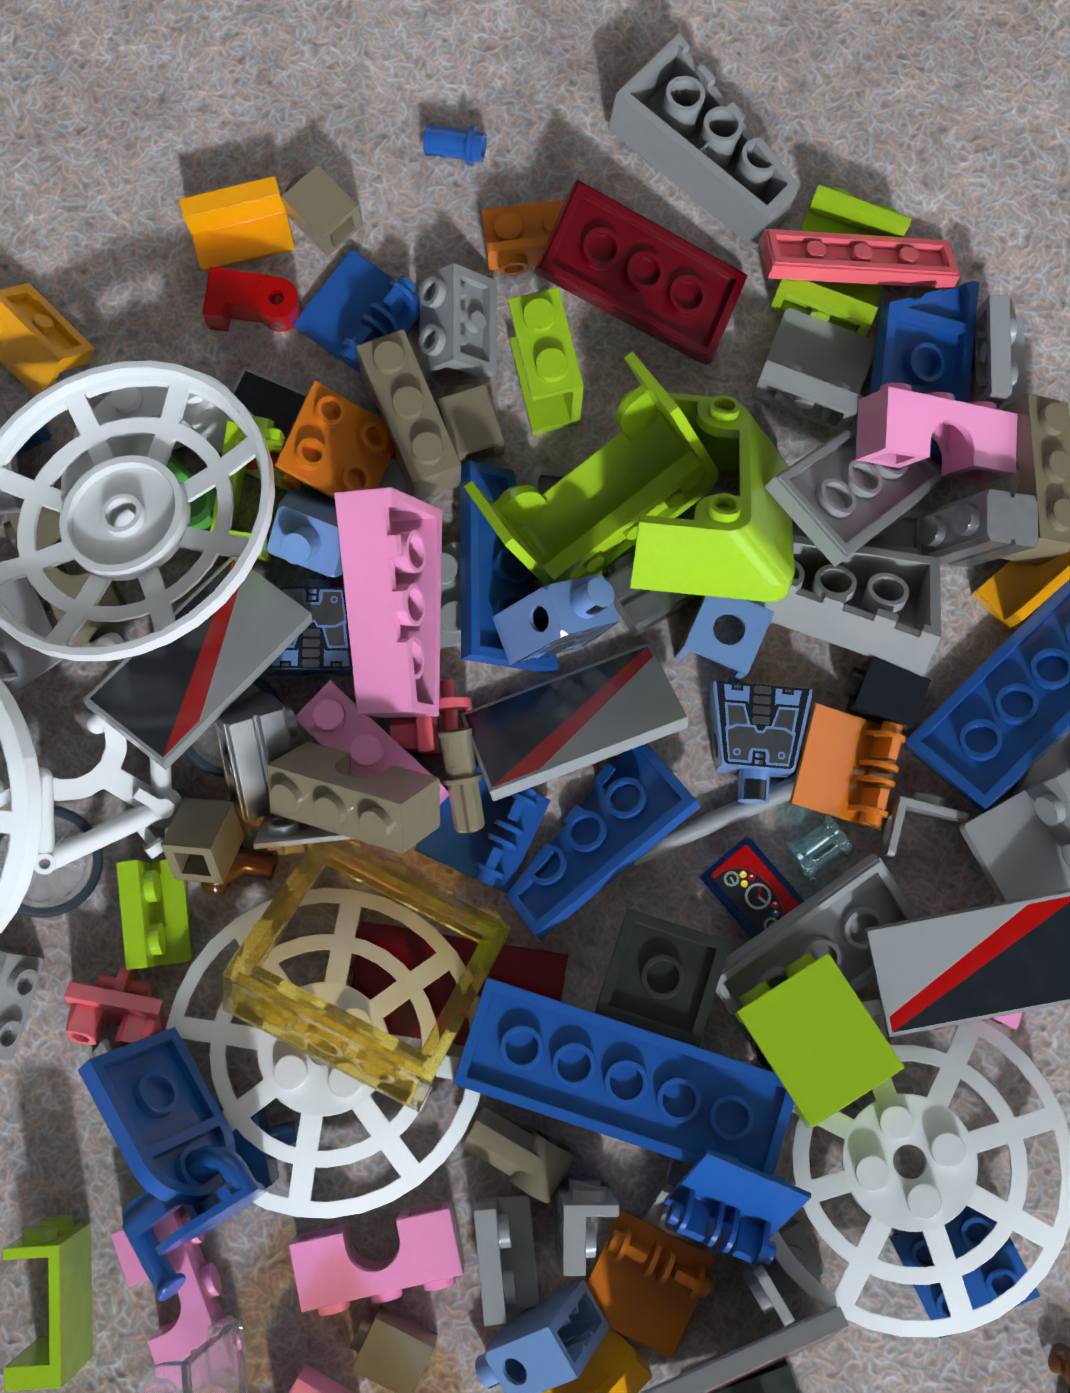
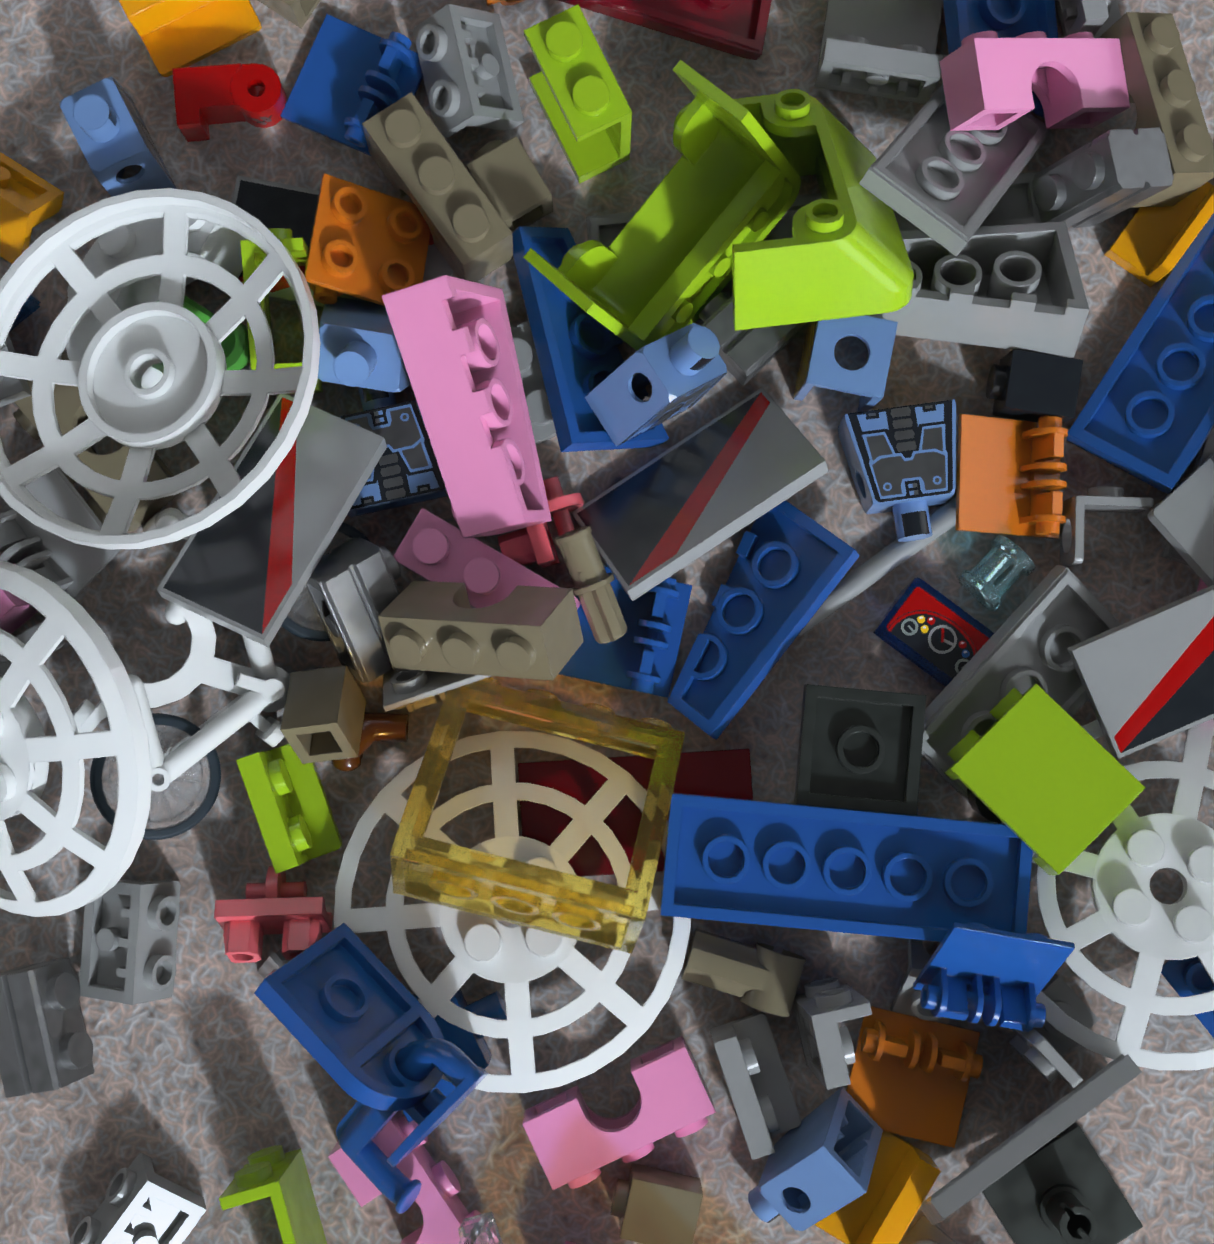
camera: 15 degrees left, 5 degrees up
(147, 310) = (114, 138): none -> medium blue torso

